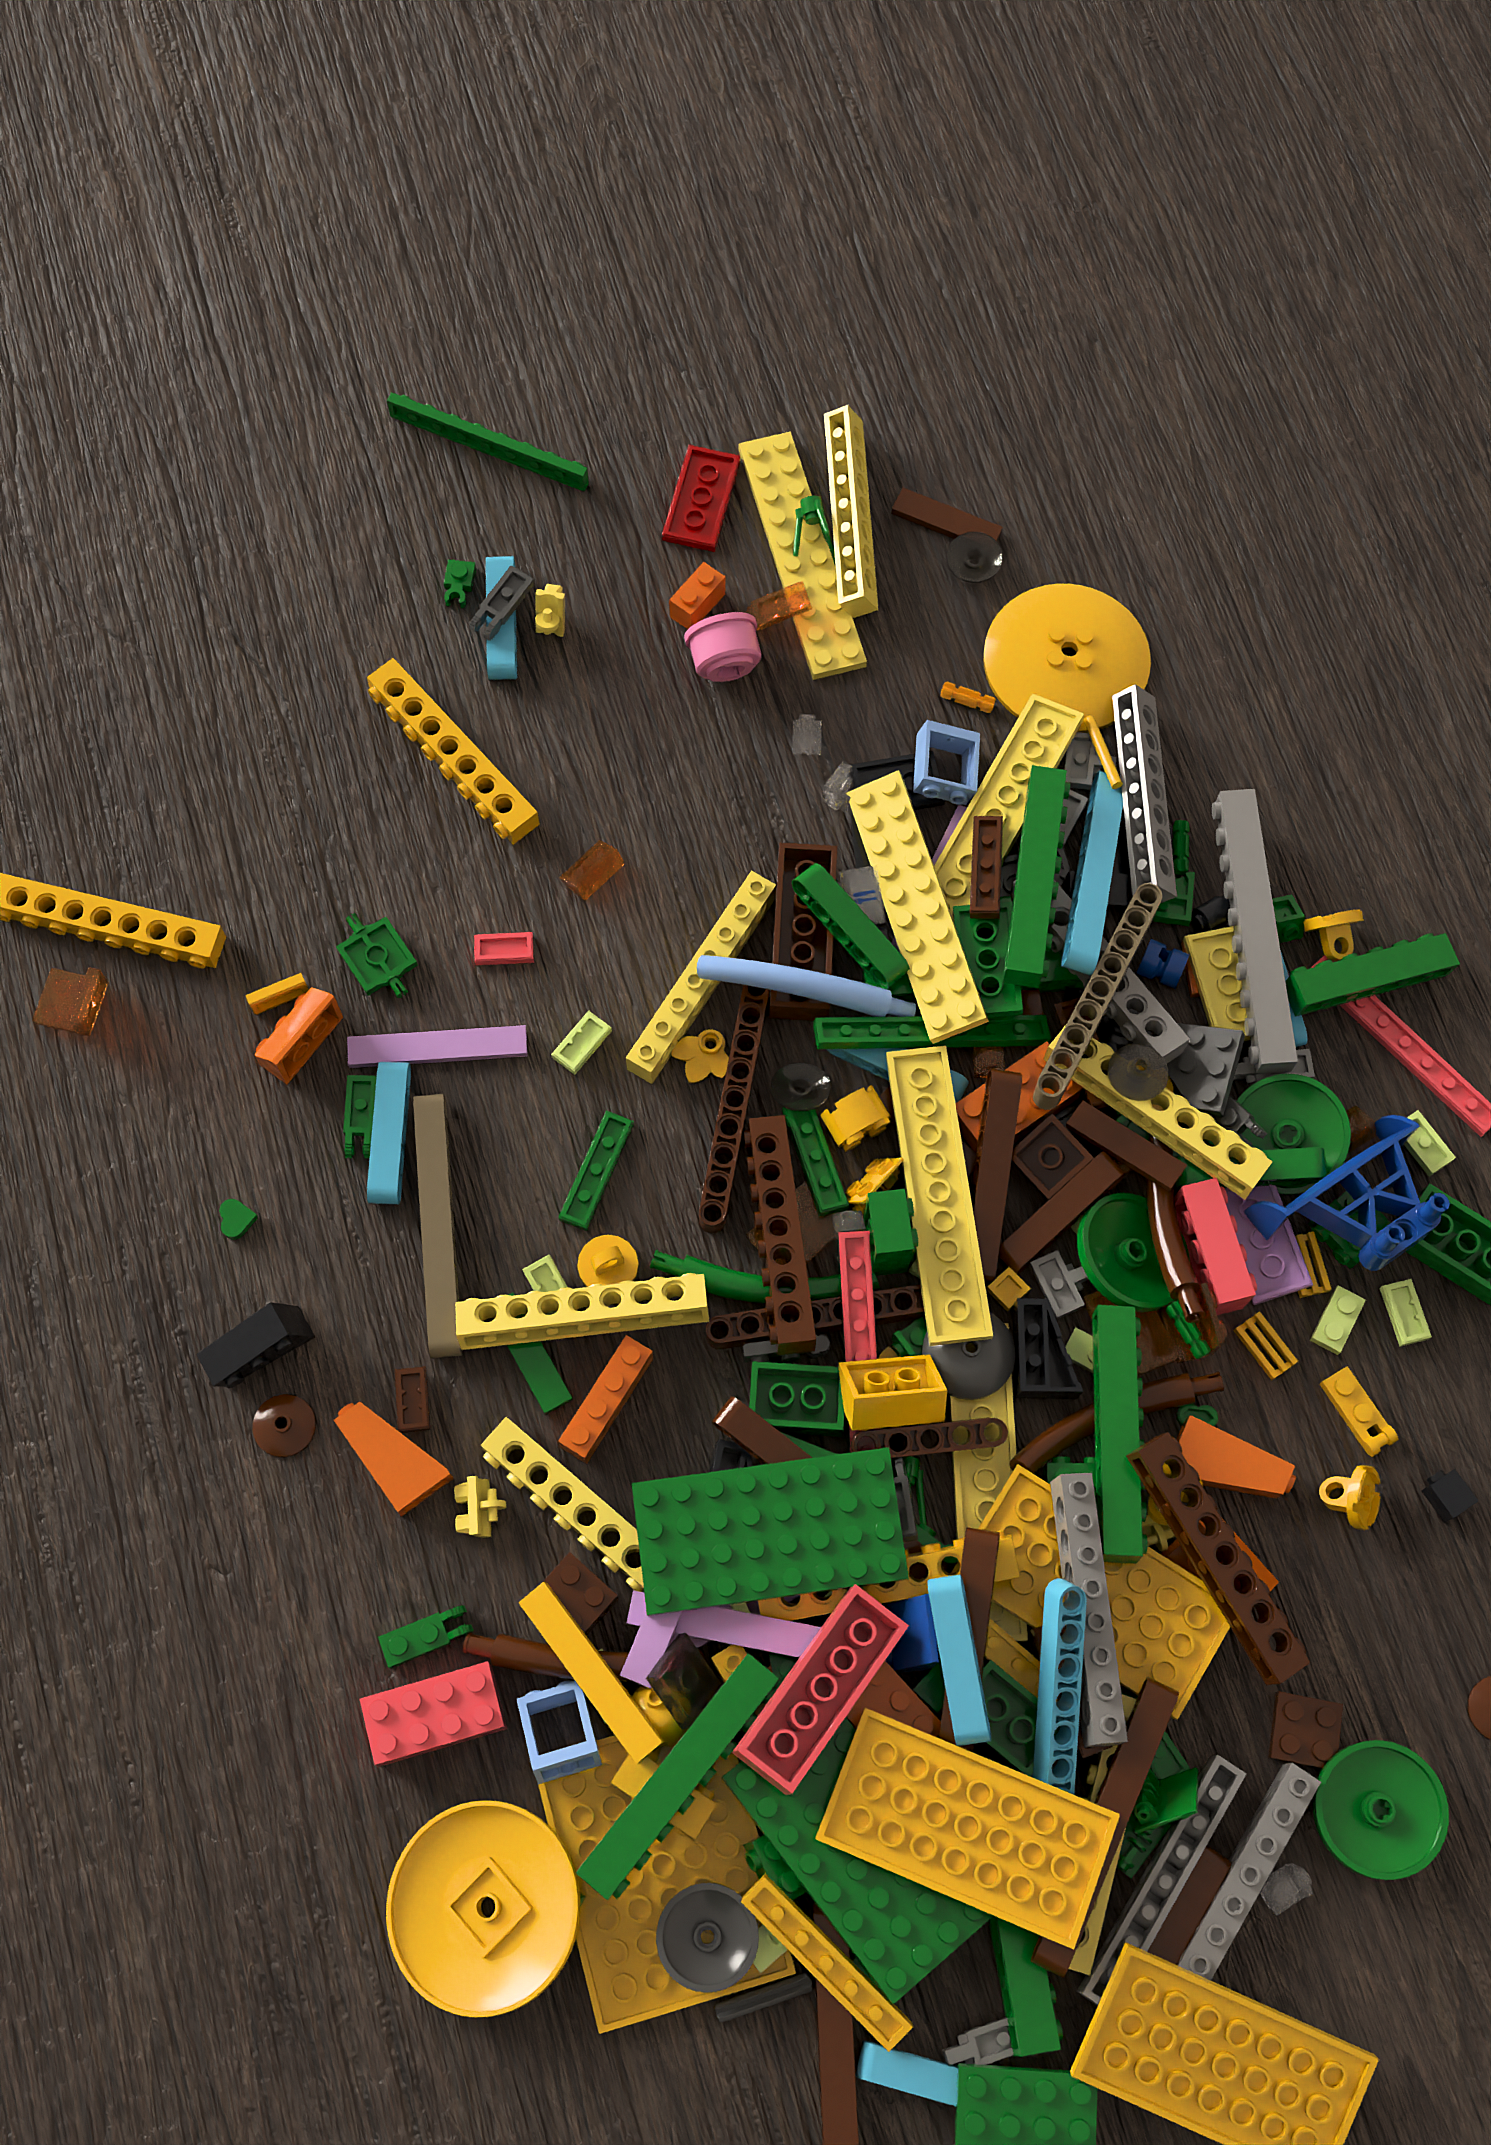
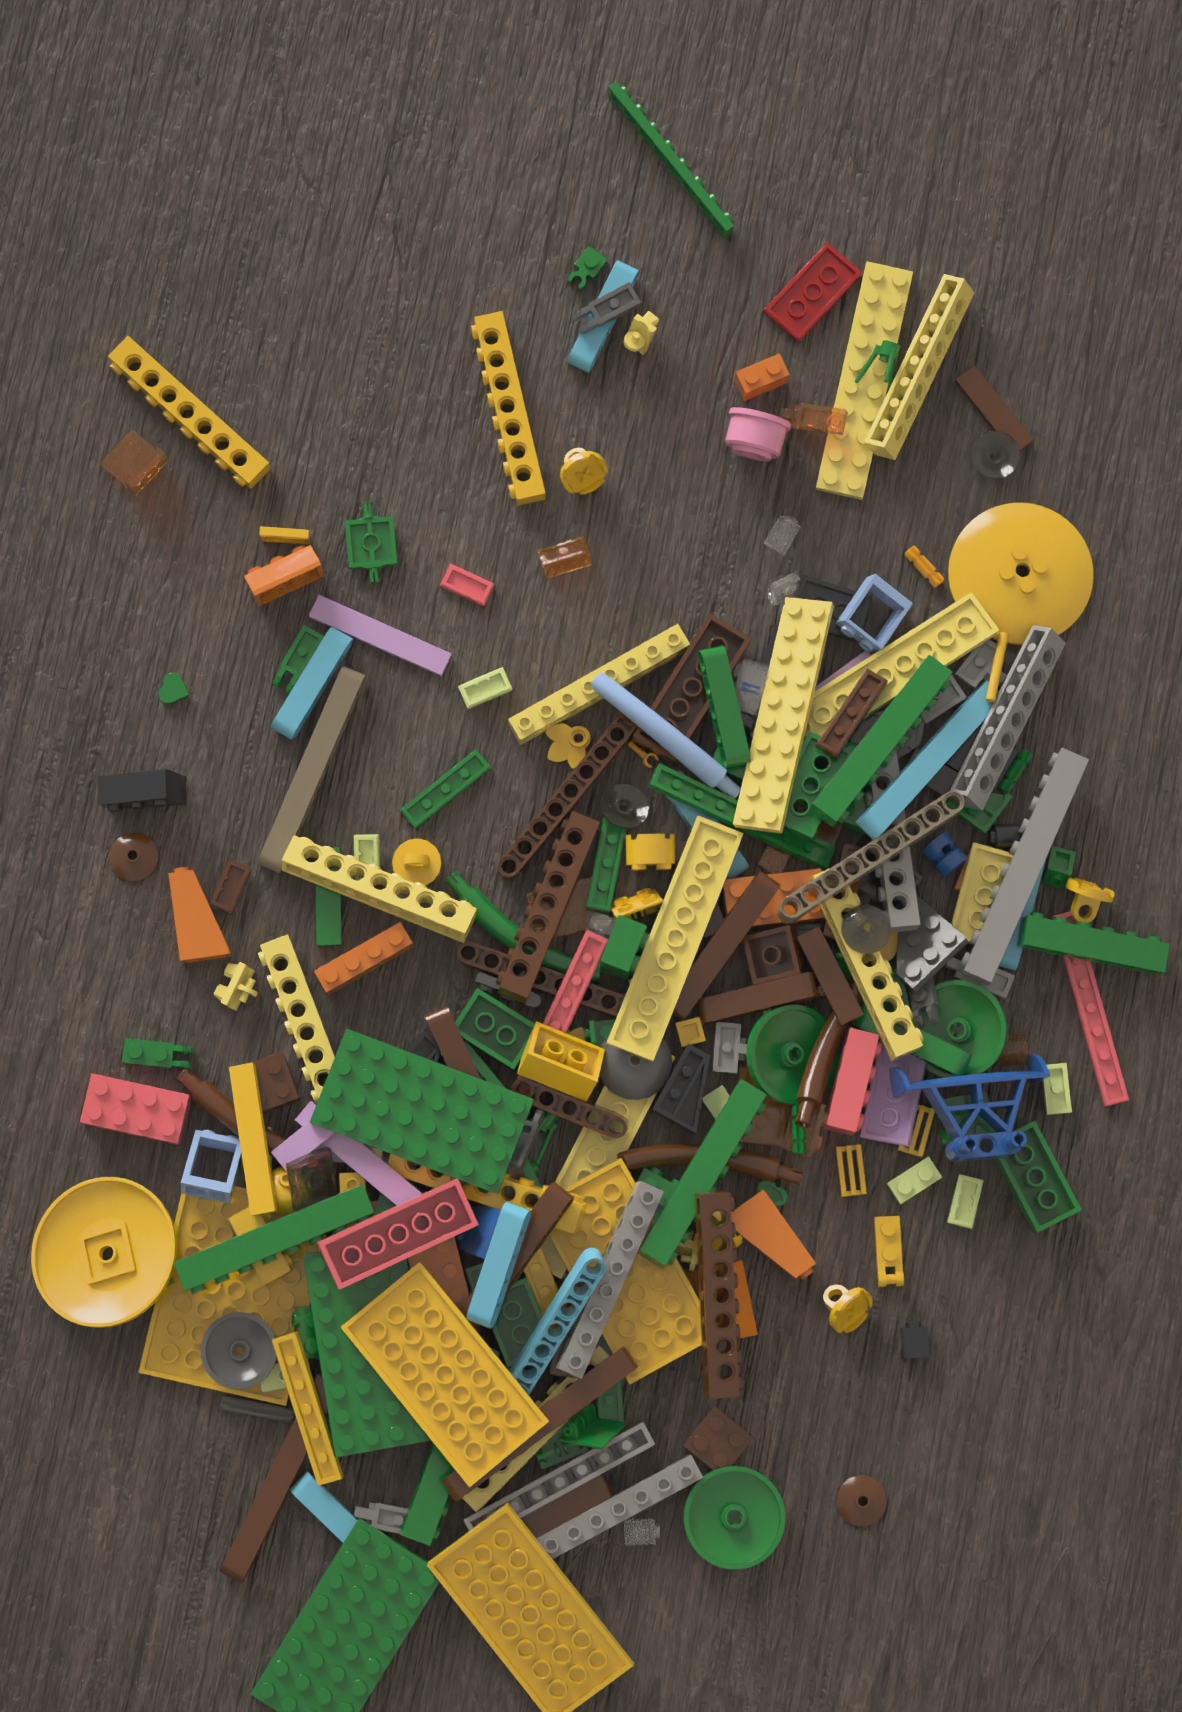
camera: 25 degrees right, 10 degrees up
(565, 772) = (583, 471): none -> yellow tile
(790, 1026) = (643, 754): none -> light orange hand

